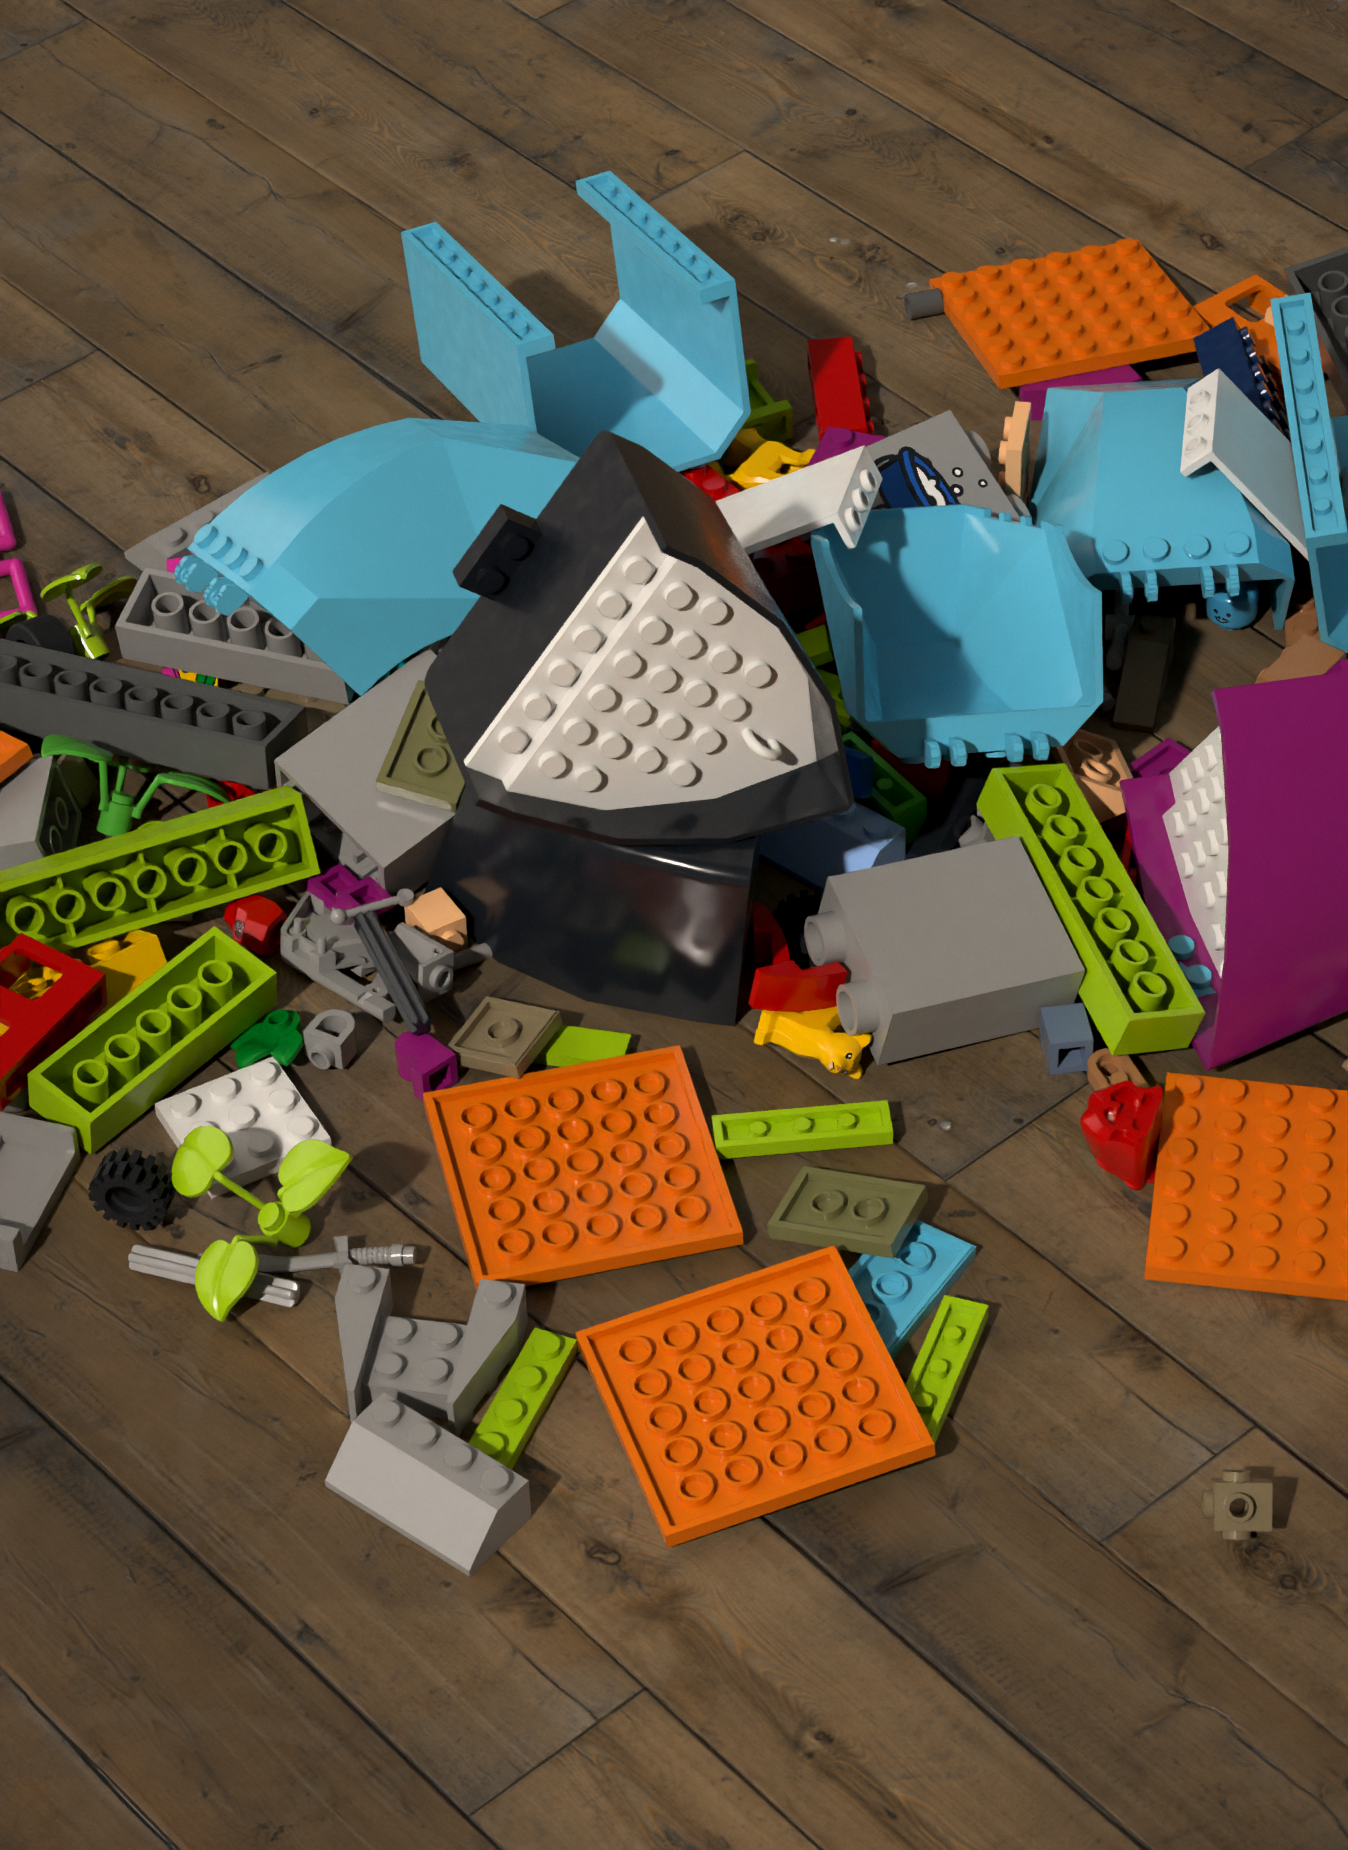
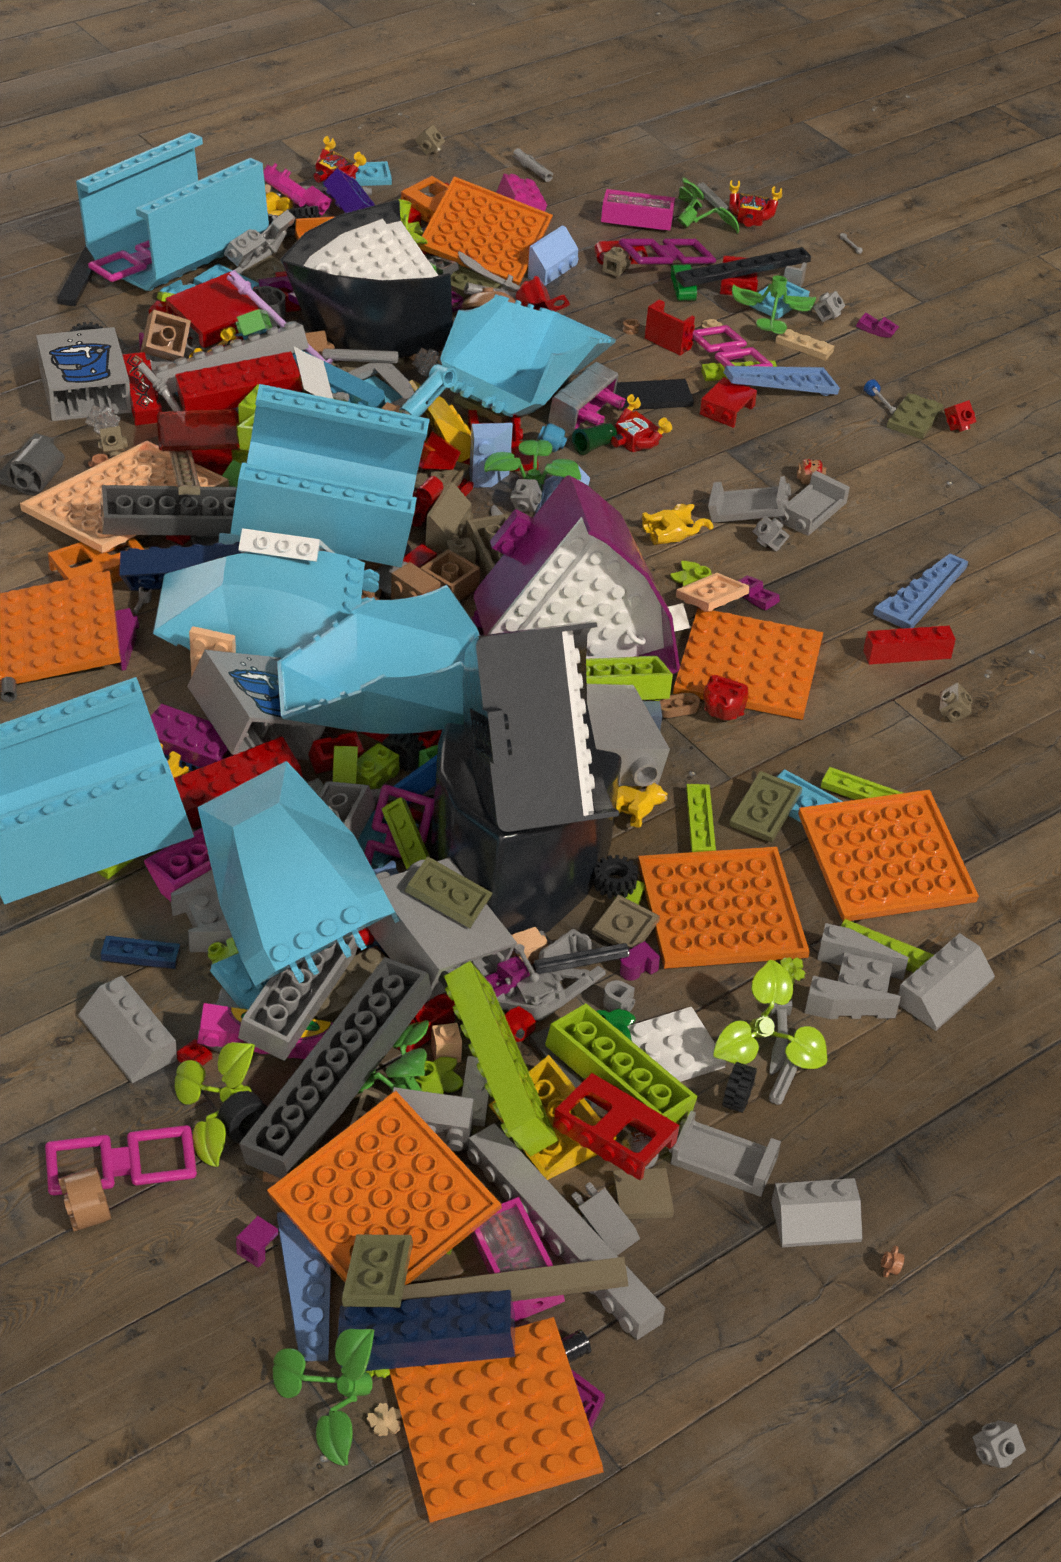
camera: 90 degrees left, 0 degrees up
(434, 1265) = (794, 968): none -> lime plant
(612, 1029) = (618, 867): none -> black tyre
(790, 989) = (627, 791): red slope -> none
(805, 500) = (297, 722): white panel -> none

